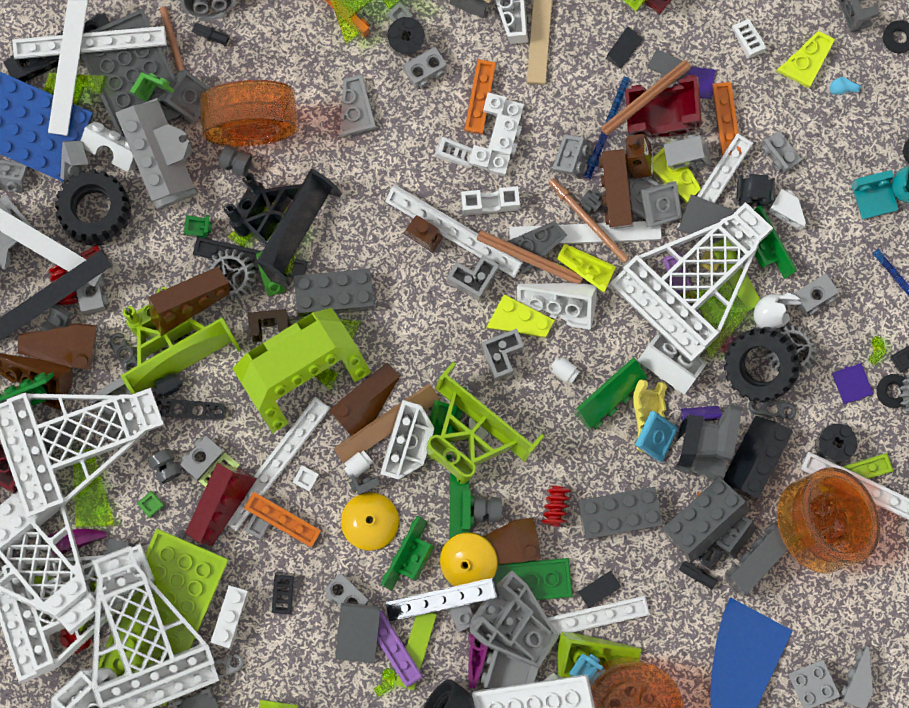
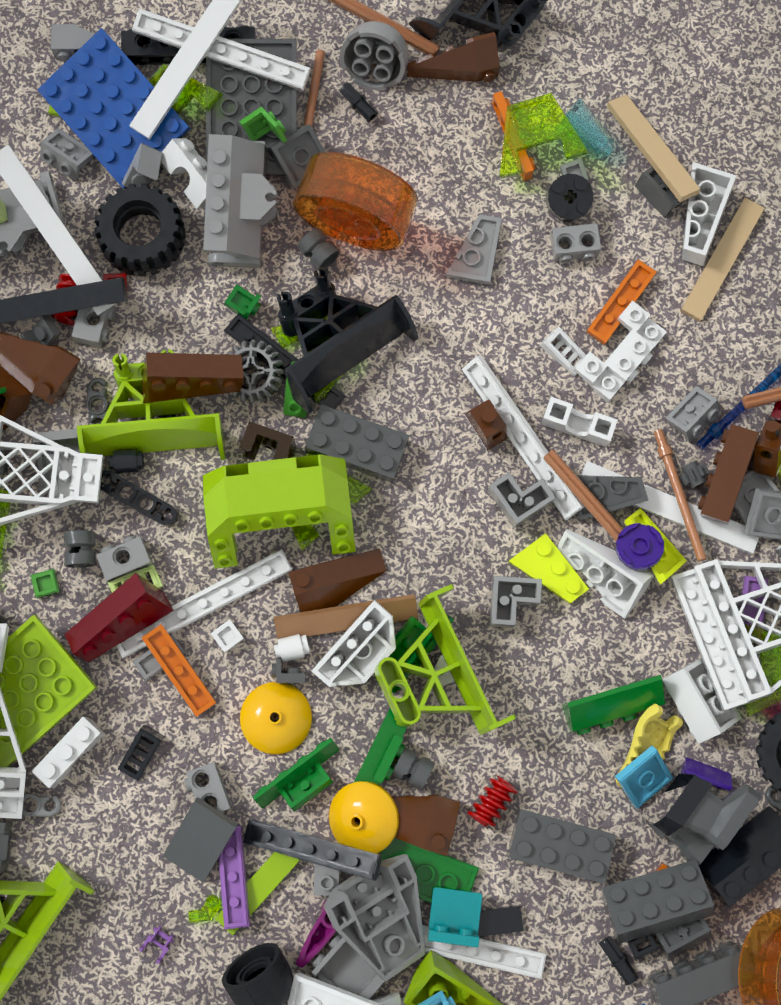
camera: 25 degrees right, 0 degrees up
(564, 370) = (574, 651): white brick -> none
(567, 599) = (455, 917): none -> teal bracket
(576, 271) = (639, 546): none -> dark purple tile

